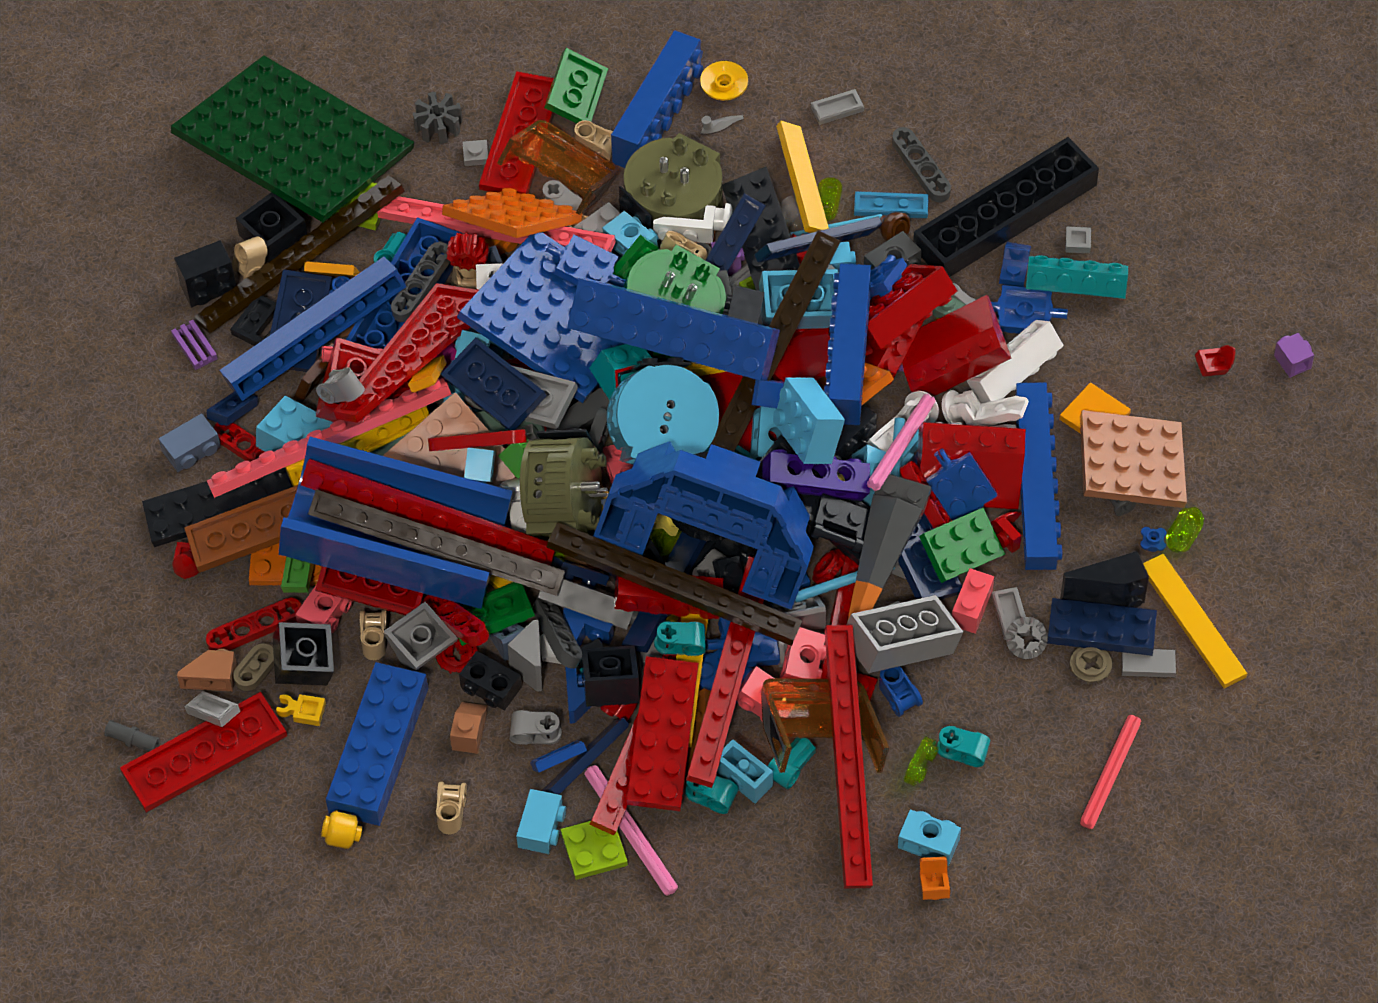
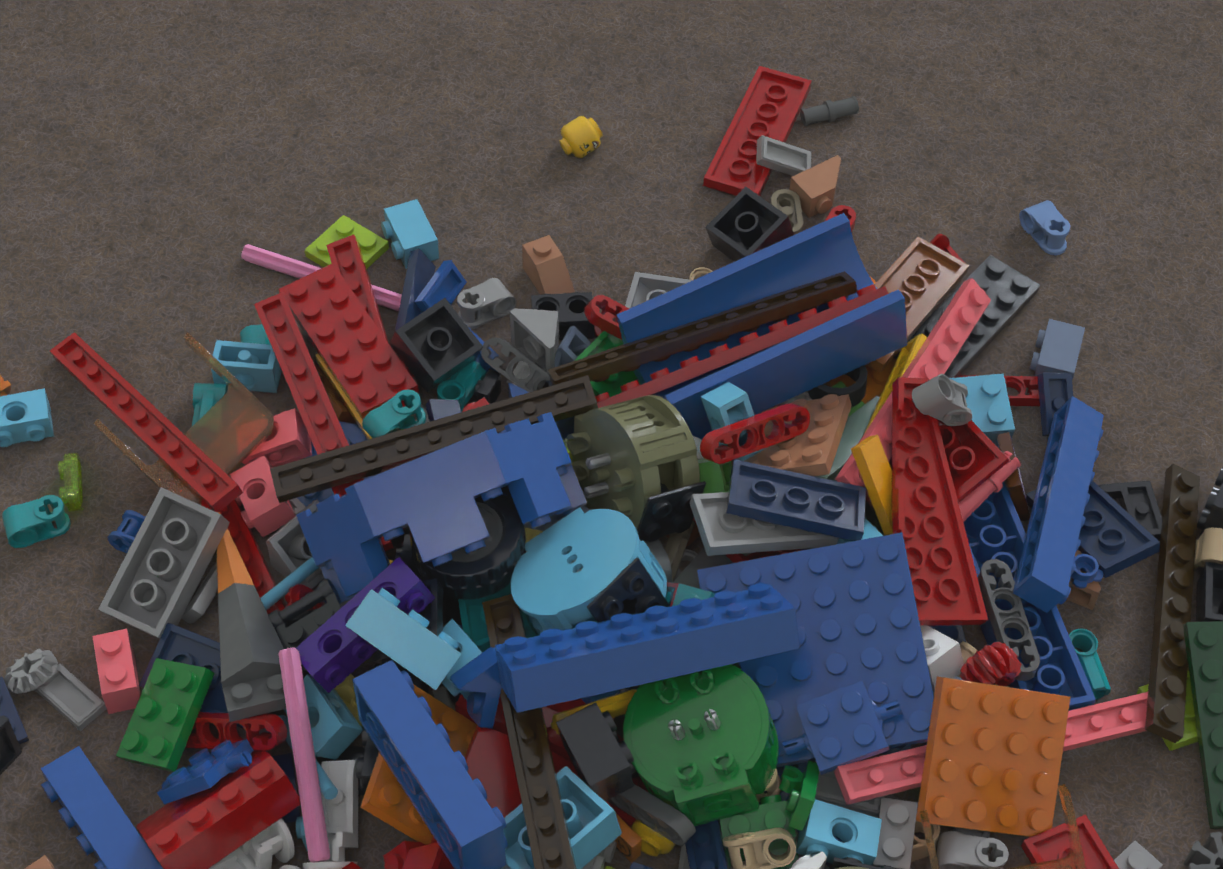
camera: 140 degrees right, 5 degrees down
(87, 538) = (1046, 227): none -> medium blue piece
(185, 330) = (1169, 451): medium lavender tile -> none
(304, 710) = (706, 207): yellow plate -> none
(332, 270) = (1116, 592): light orange tile -> none
(377, 743) = (614, 210): blue brick -> none
(450, 802) = (504, 202): tan piece -> none
(1005, 532) = (129, 776): red plate -> none

